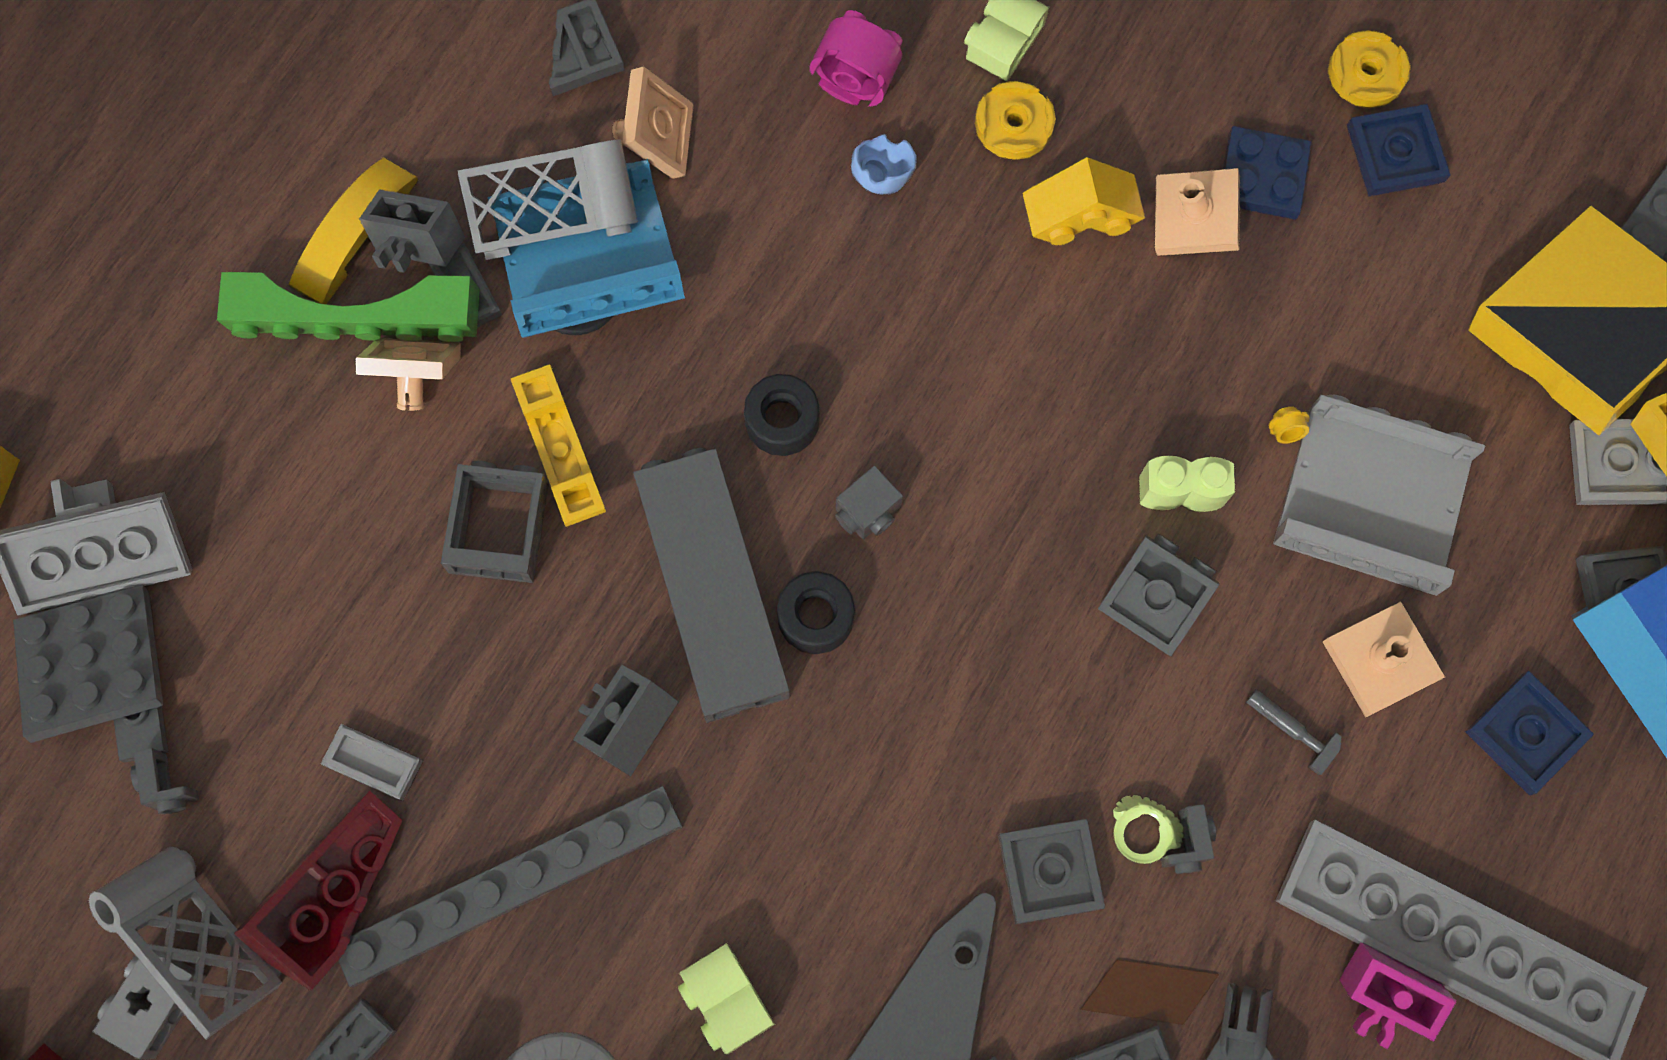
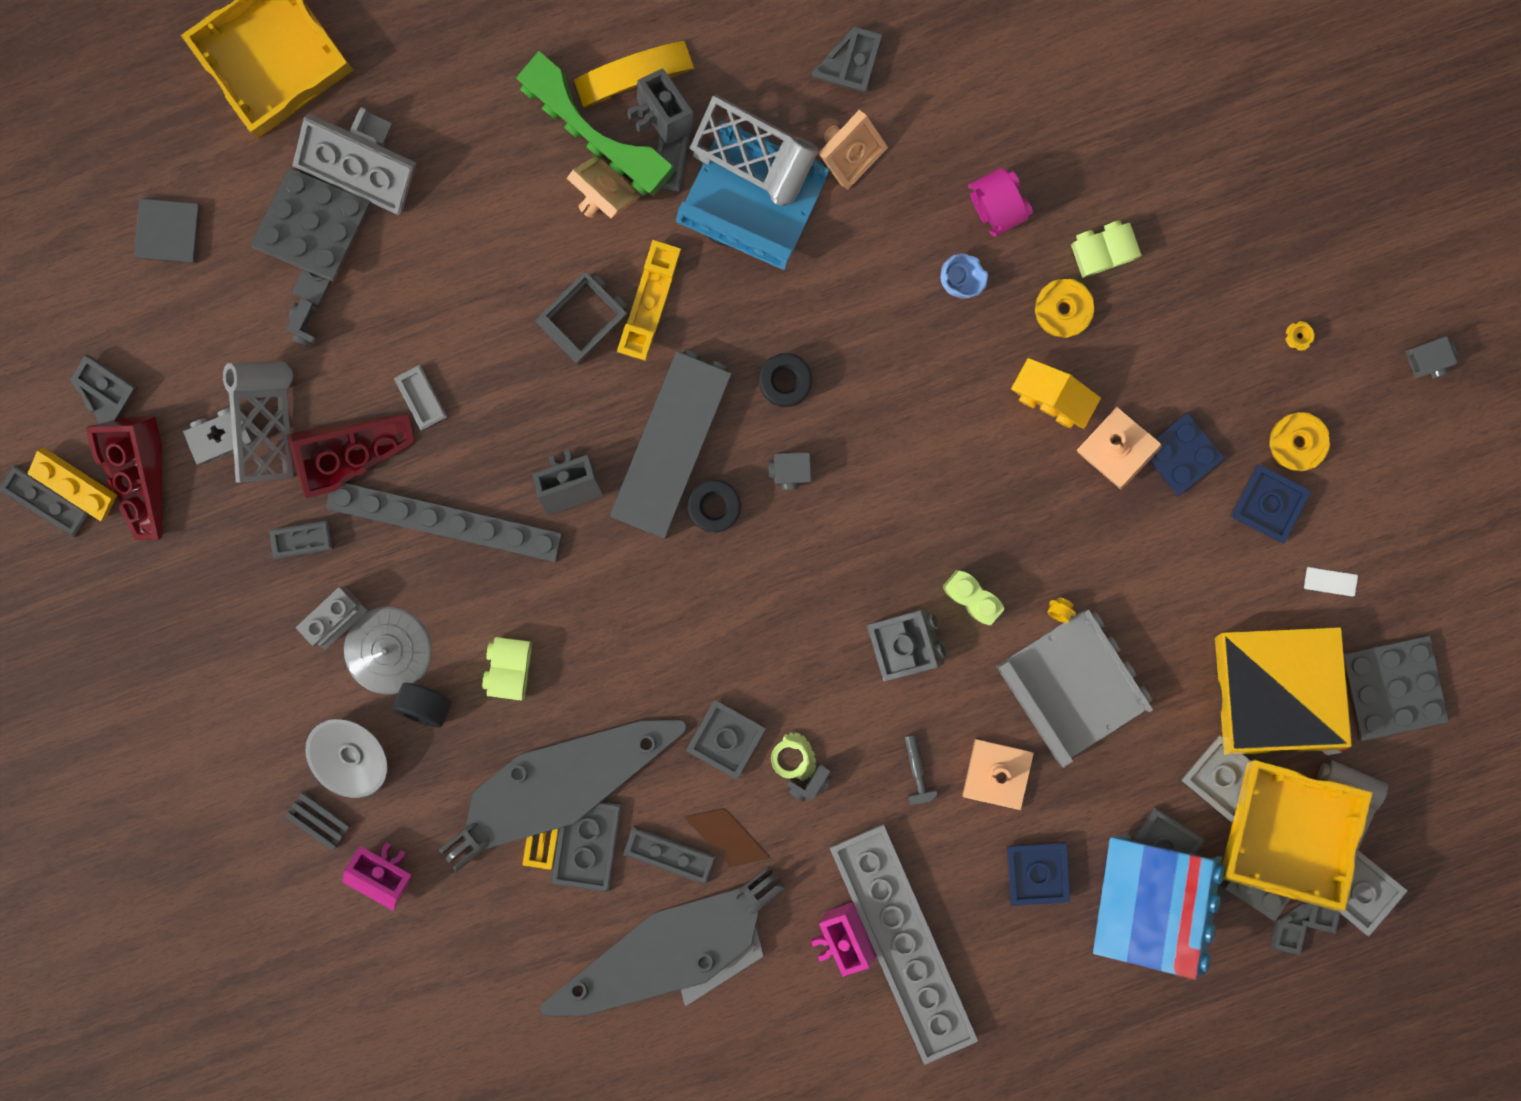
camera: 45 degrees right, 15 degrees up
(1527, 183) = (1330, 581): none -> white sticker

